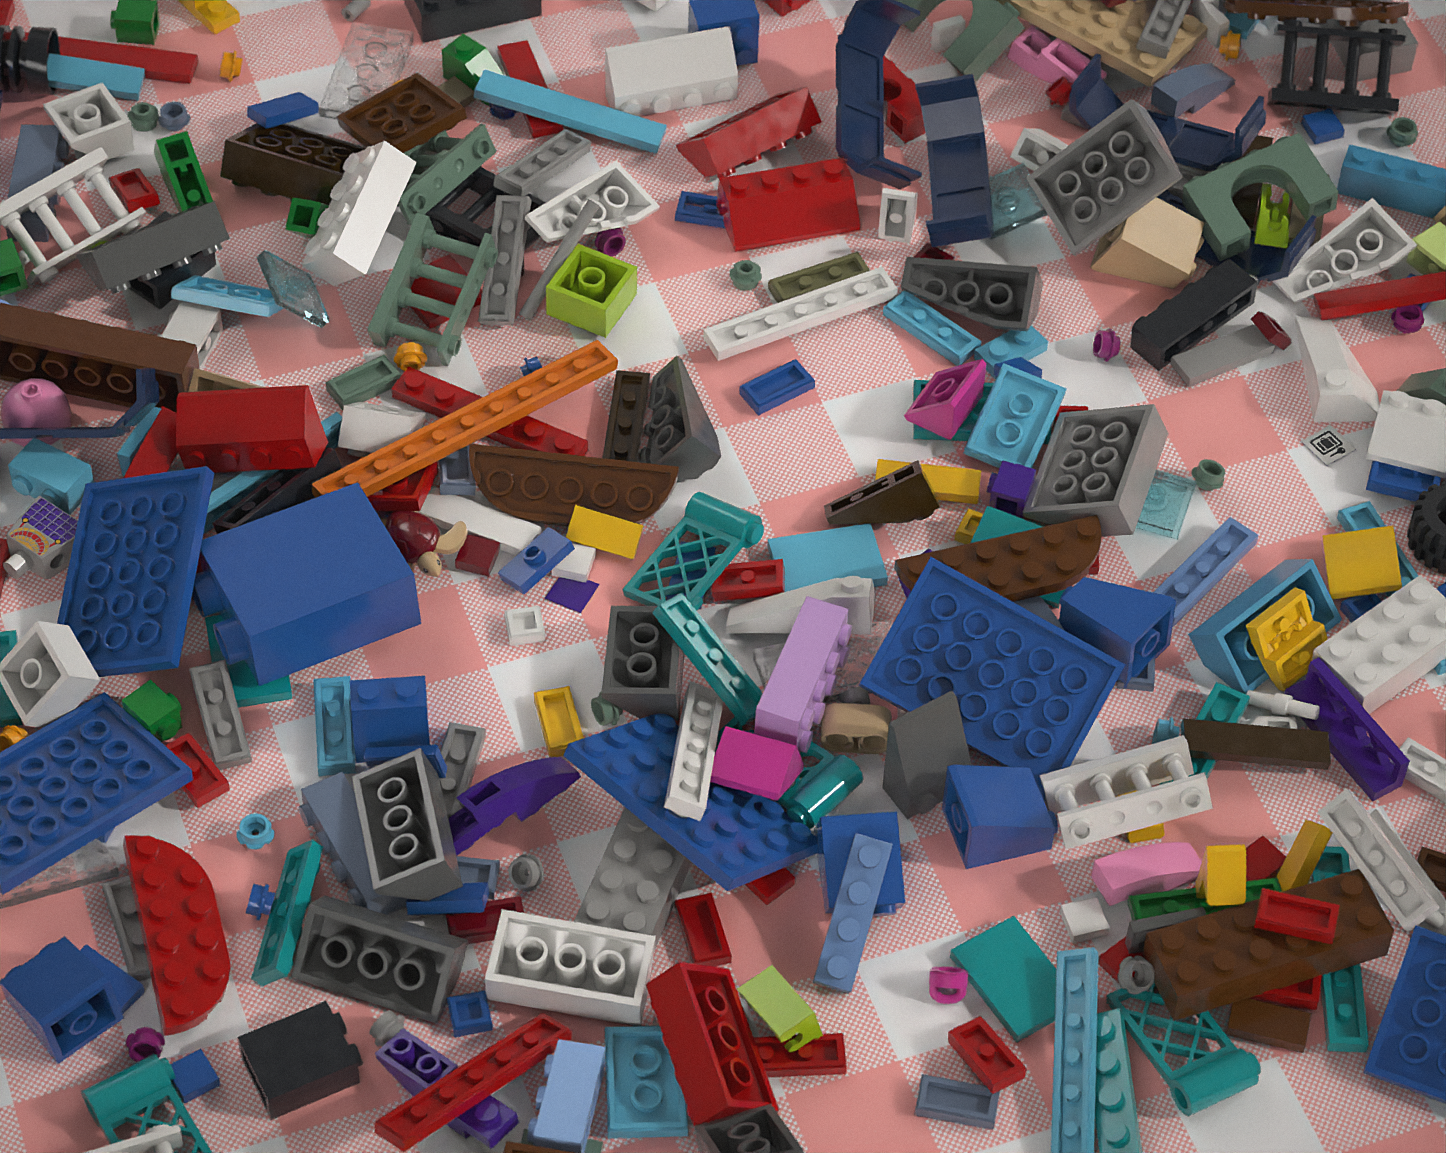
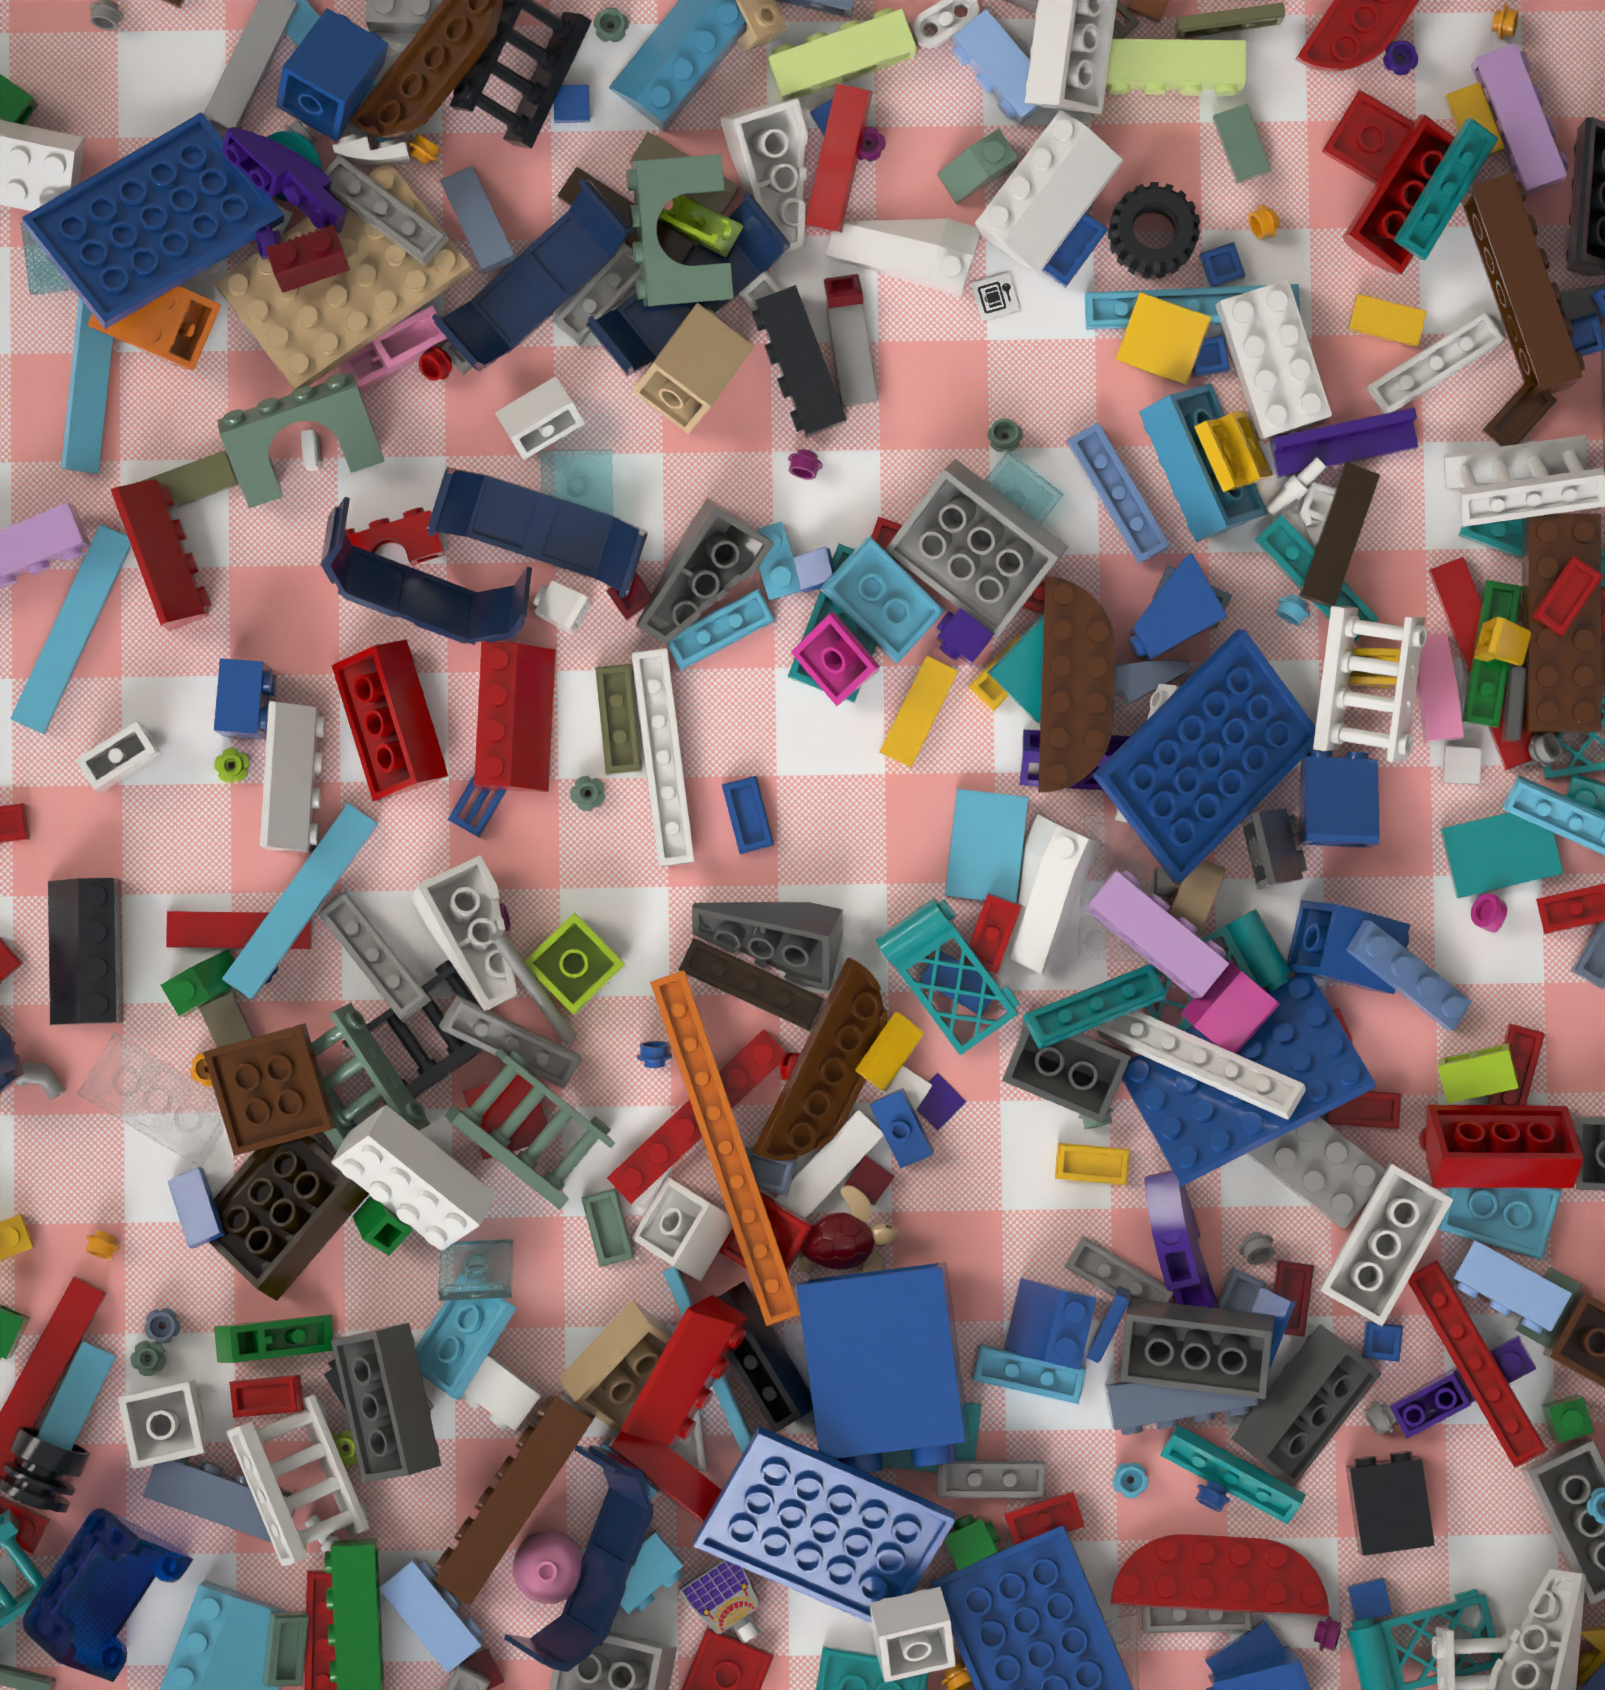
camera: 70 degrees left, 35 degrees up
(410, 355) = (595, 1172): light orange plate -> none
(524, 625) = (968, 1161): white tile -> none
(891, 499) = (941, 767): dark brown slope -> none
(1105, 176) = (632, 388): light grey slope -> none
(1303, 855) = (1480, 552): yellow tile -> none

